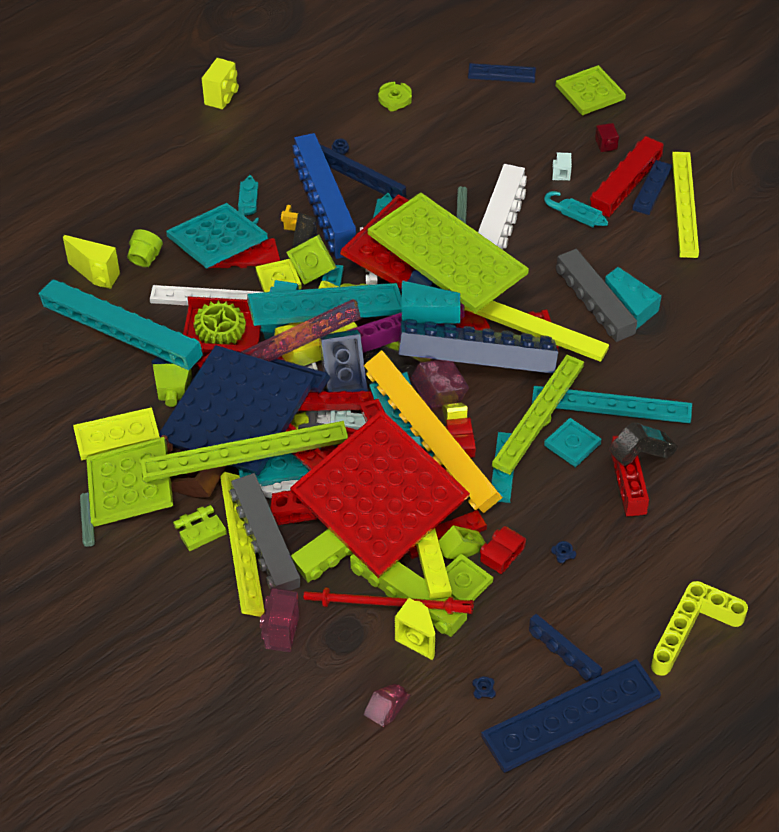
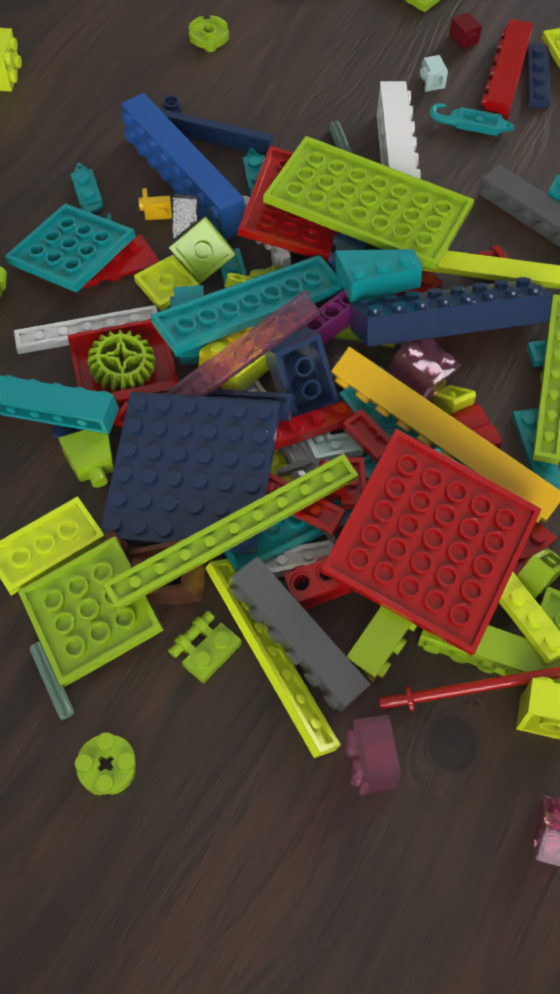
camera: 20 degrees left, 10 degrees up
(99, 570) = (105, 781): none -> lime plate

